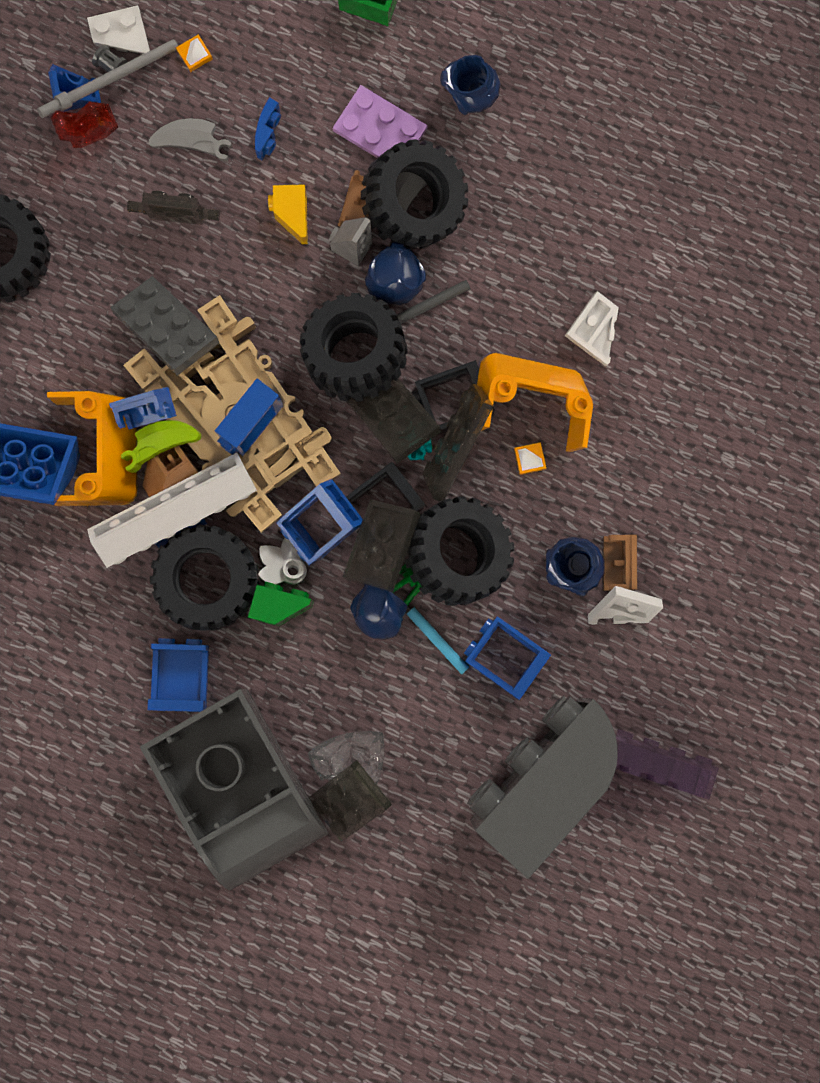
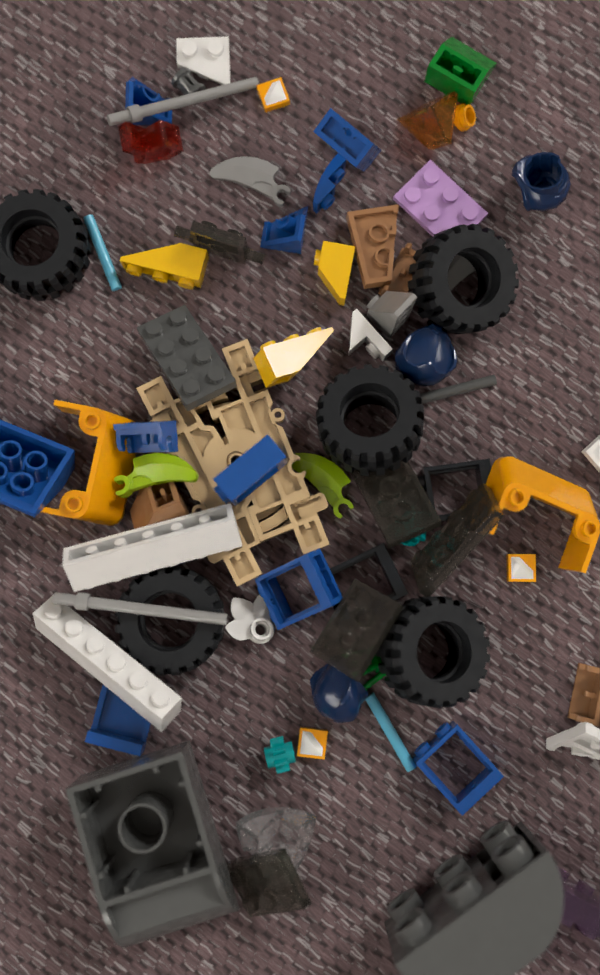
camera: 15 degrees right, 0 degrees up
(60, 242) = (102, 252): none -> medium azure bar
(118, 574) = (84, 601): none -> light grey bar
(133, 237) = (174, 262): none -> yellow slope
(152, 629) = (108, 663): none -> white brick
(236, 185) = (286, 233): none -> blue slope
(259, 307) = (283, 360): none -> slope
(275, 84) = (347, 140): none -> blue window
(278, 607) = (238, 666): green slope -> none
(323, 177) = (374, 239): none -> medium nougat wing
(325, 413) = (325, 477): none -> lime piece
(330, 266) = (363, 331): none -> white slope
(336, 683) = (279, 754): none -> teal gear
(355, 47) = (433, 121): none -> clear orange slope
(365, 666) = (312, 743): none -> tile
(384, 36) = (464, 117): none -> light orange plate
(569, 554) = (557, 693): dark blue helmet -> none

